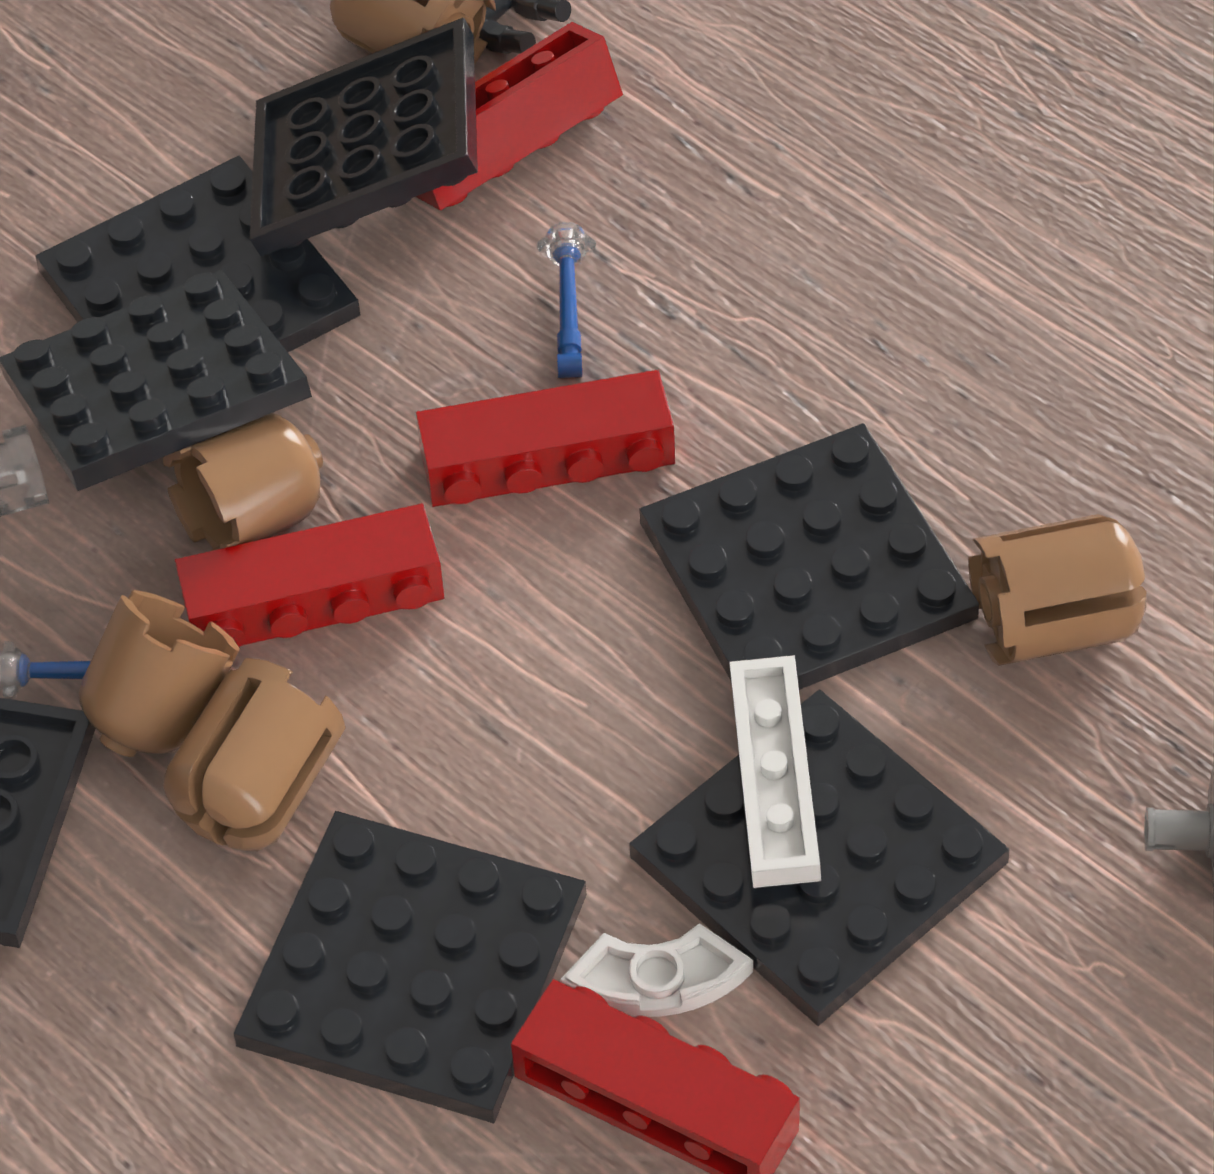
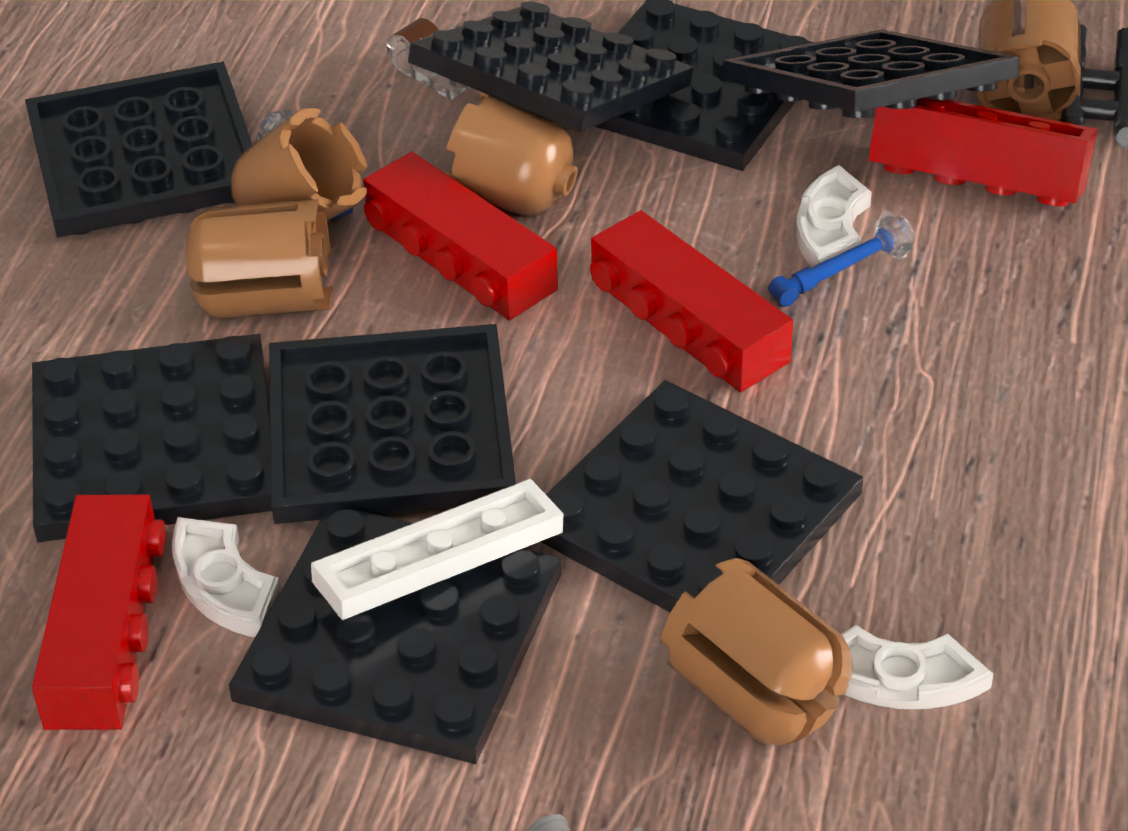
camera: 60 degrees right, 10 degrees down
(489, 283) = (828, 214): none -> white tile
(544, 750) = (387, 422): none -> black plate
(1105, 486) = (913, 673): none -> white tile

